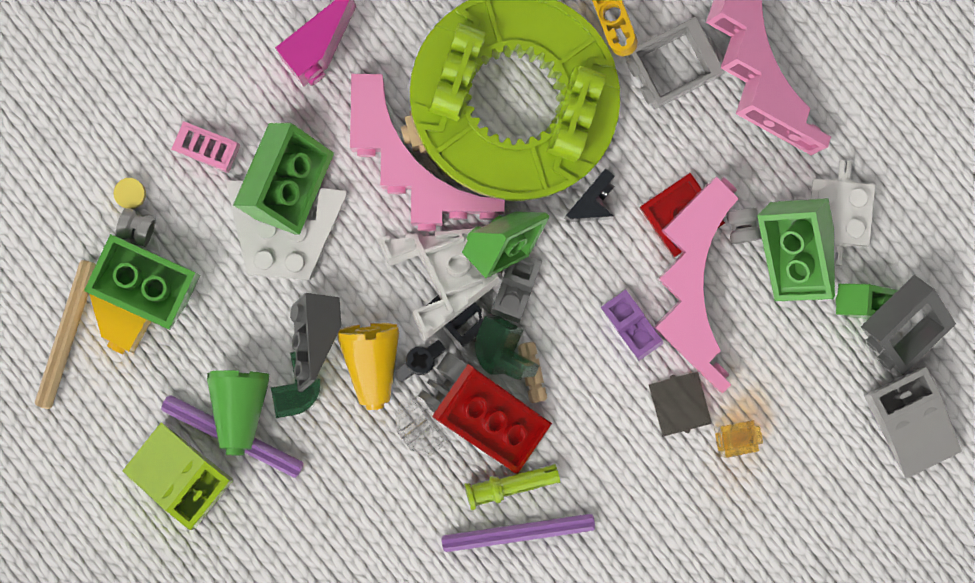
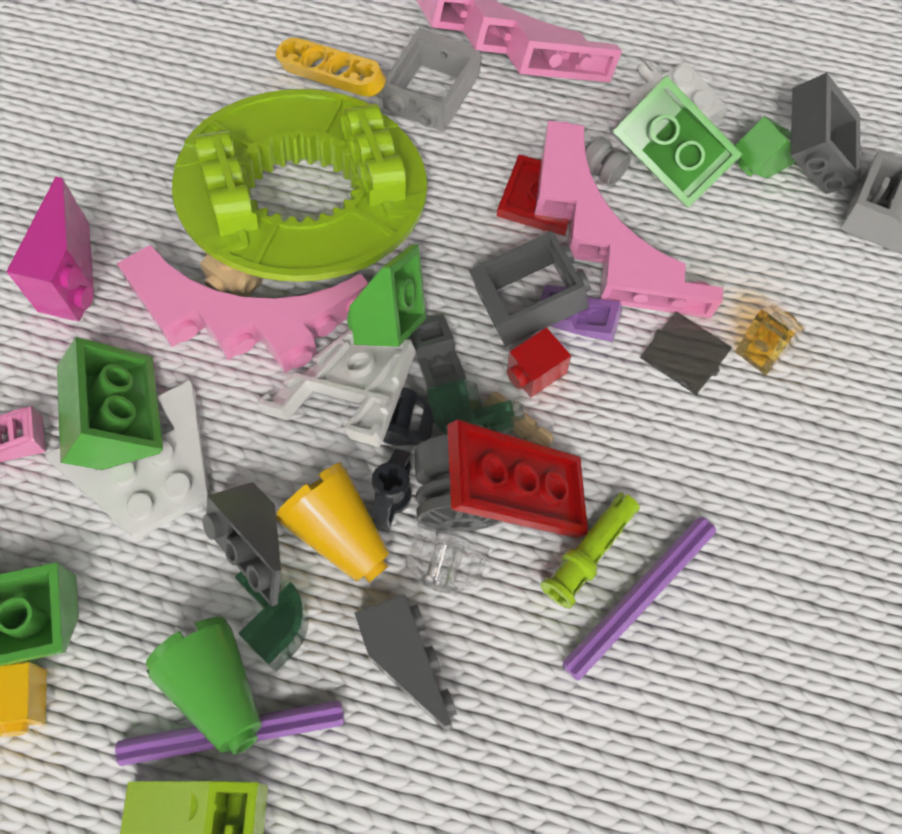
camera: 35 degrees left, 20 degrees down
(354, 461) = (396, 649): none -> dark grey slope
(572, 343) = (537, 362): none -> red brick
(576, 282) = (518, 264): none -> dark grey window
(587, 207) = (452, 234): black slope -> none

